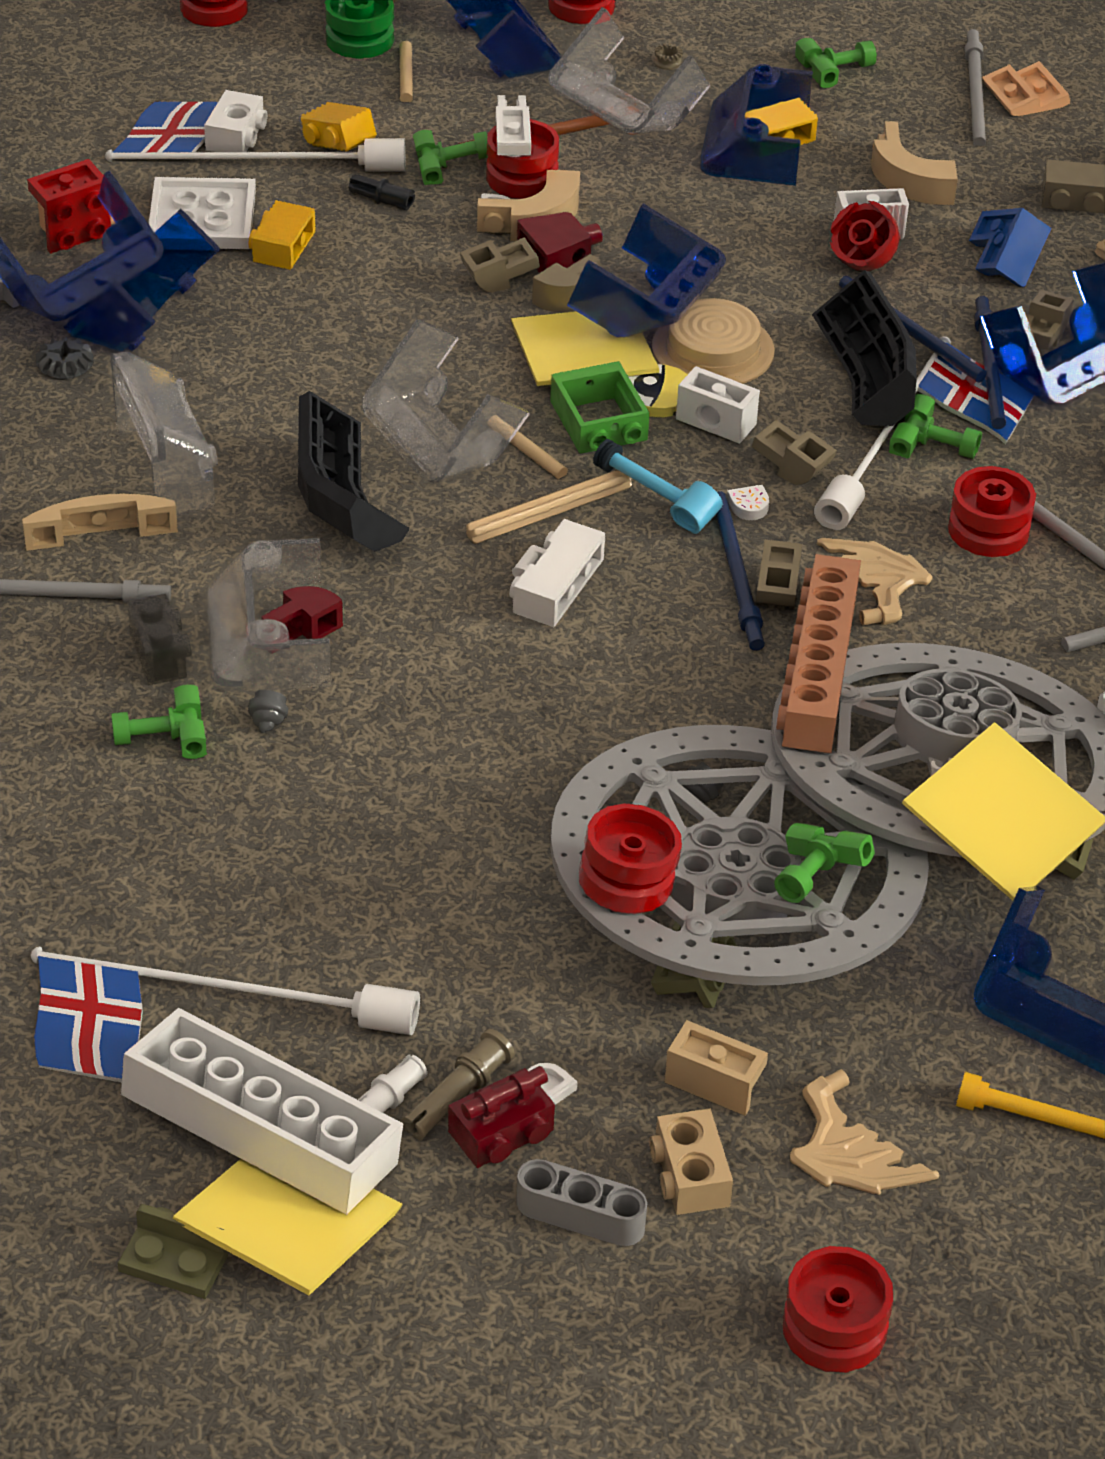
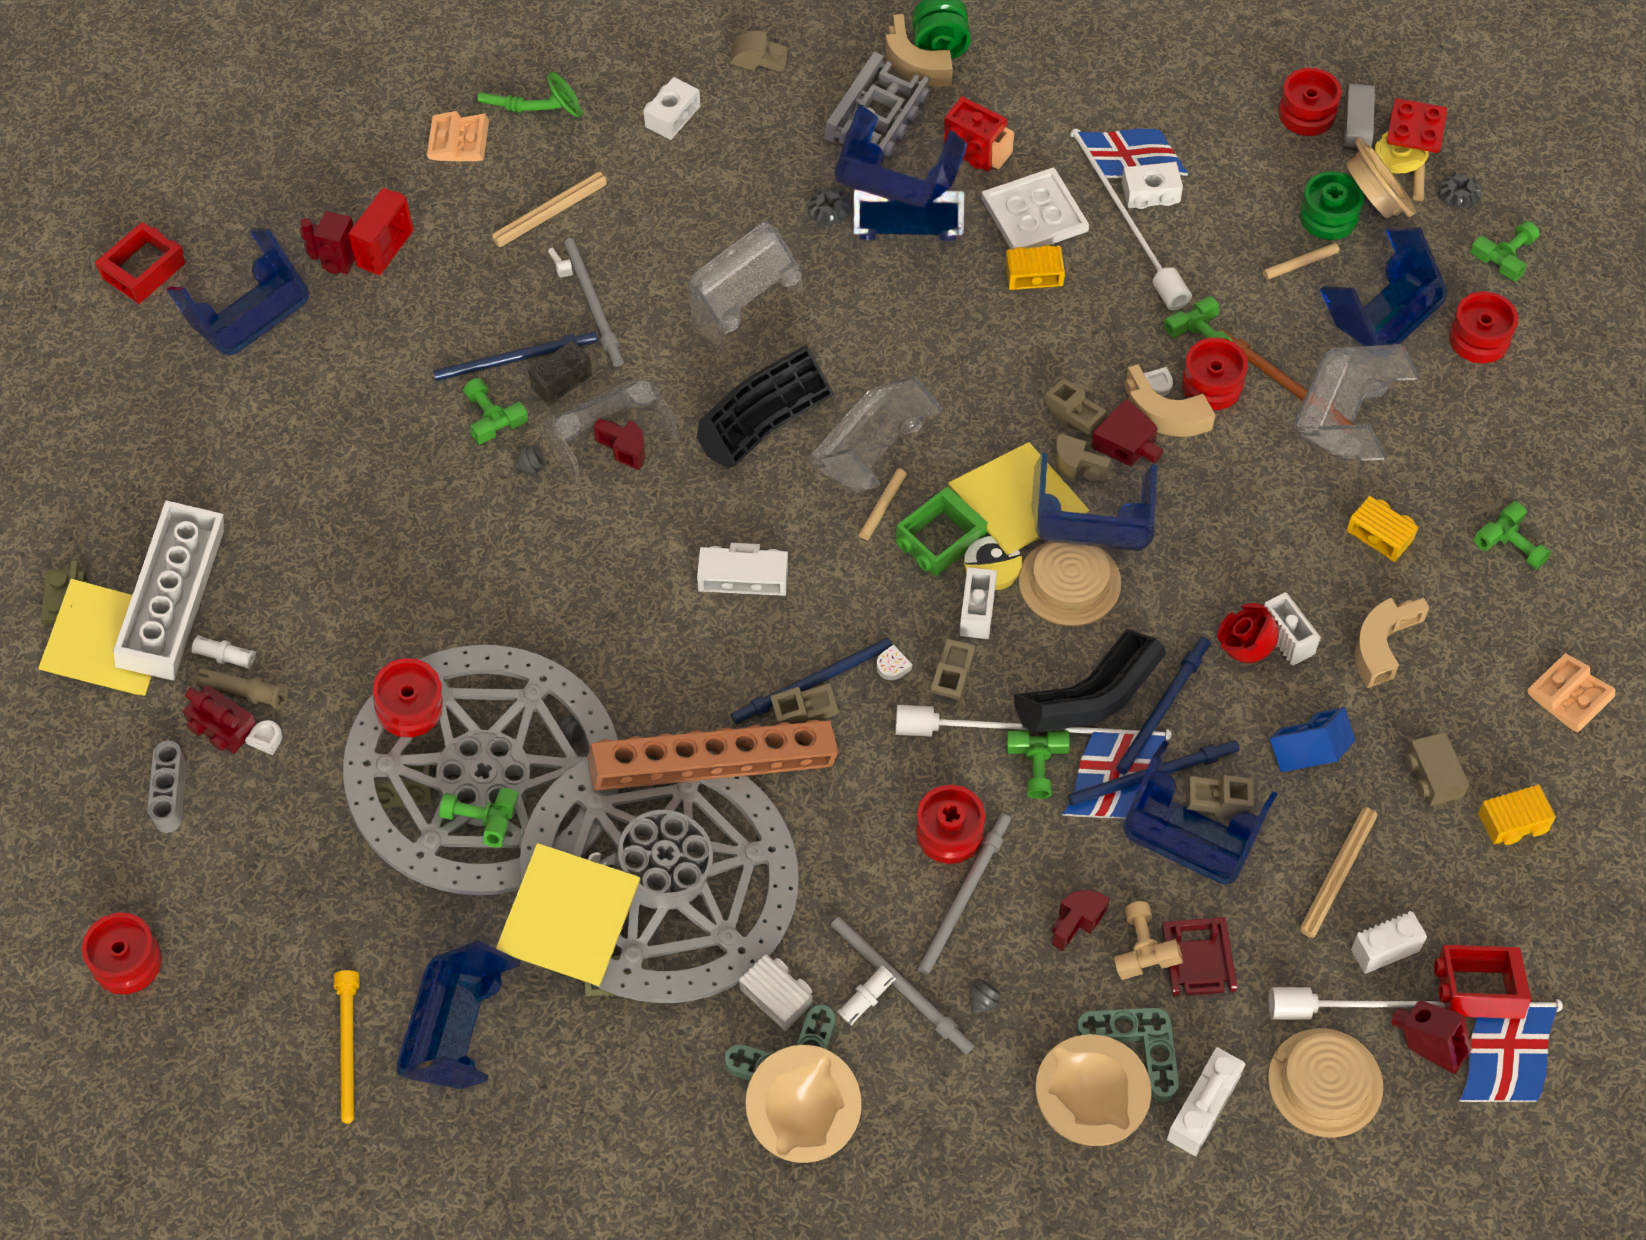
camera: 70 degrees right, 15 degrees up
(95, 1010) = (235, 480): flag -> none
(97, 514) = (647, 273): tan slope -> none
(103, 629) = (513, 356): none -> dark blue bar
(338, 126) = (1180, 245): yellow brick -> none
(382, 191) = (1130, 305): black axle -> none
(513, 127) = (1217, 347): white hinge -> none
(547, 506) = (822, 542): tan axle -> none
(673, 52) = (1439, 414): dark tan bush -> none
(692, 506) = (858, 628): medium azure piece -> none
(692, 1162) = (225, 842): tan brick -> none
(714, 1066) = (301, 819): tan panel -> none
(742, 146) = (1328, 502): clear blue windscreen -> none
(850, 1153) = (271, 923): tan animal -> none
(883, 569) = (861, 776): tan animal -> none
(974, 55) = (1600, 636): light grey bar -> none

